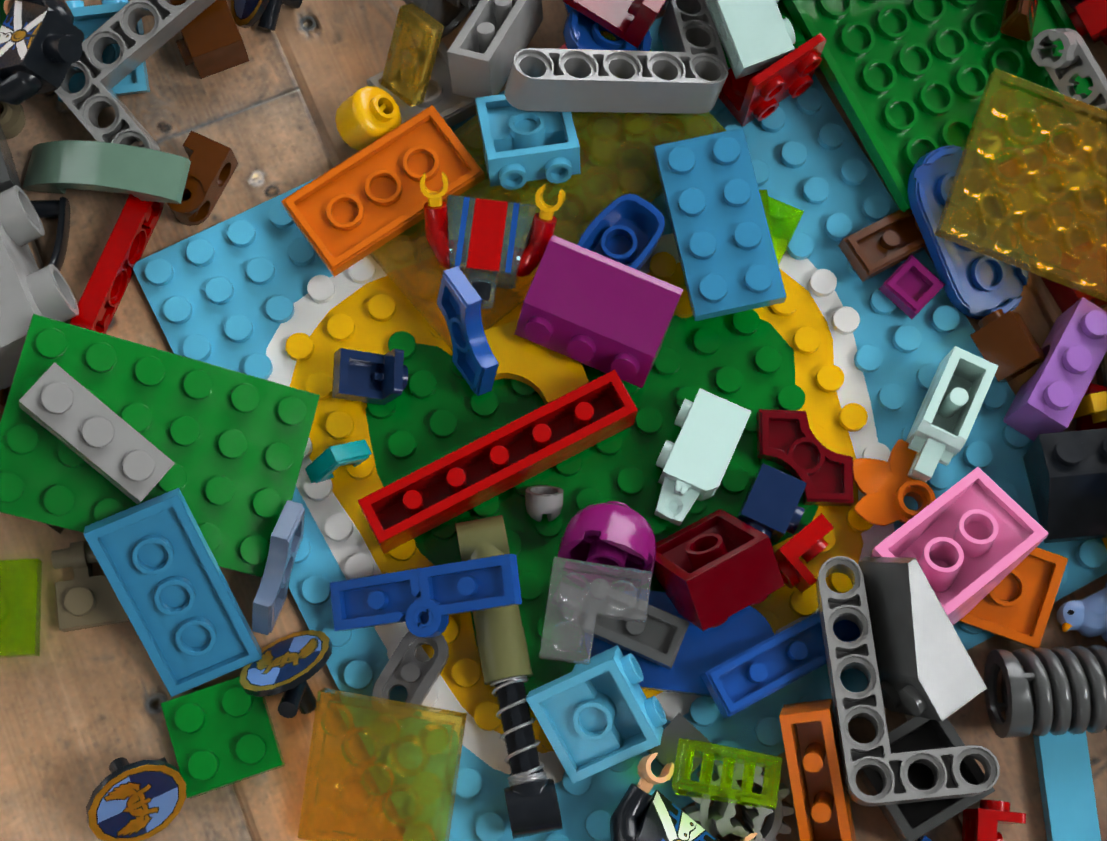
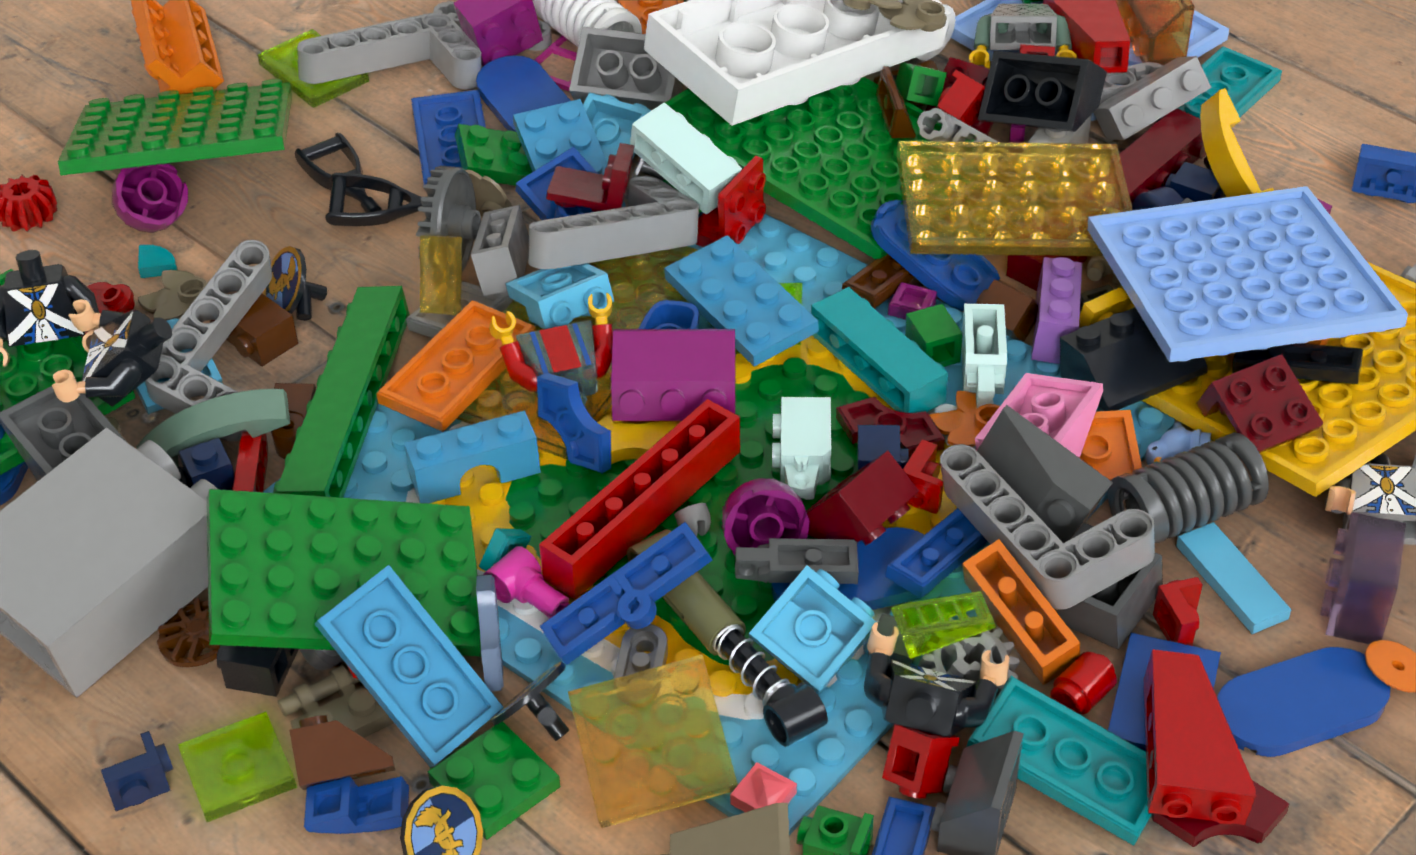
camera: 15 degrees left, 30 degrees down
(77, 654) = (333, 752): none -> reddish brown slope
(82, 711) = (346, 808): none -> blue slope
(83, 223) = (208, 462): none -> dark blue brick
(95, 433) = (299, 544): light grey brick -> none
(249, 189) = (346, 395): none -> green brick
(320, 321) = (443, 458): none -> dark azure arch
(336, 511) = (521, 578): none -> dark pink pin
(366, 117) = (416, 330): yellow head -> none
(369, 376) = (505, 487): dark blue bracket -> none
(578, 595) = (761, 539): clear plate -> none
(839, 354) = (879, 353): none -> teal brick
(907, 355) = (935, 334): none -> green brick

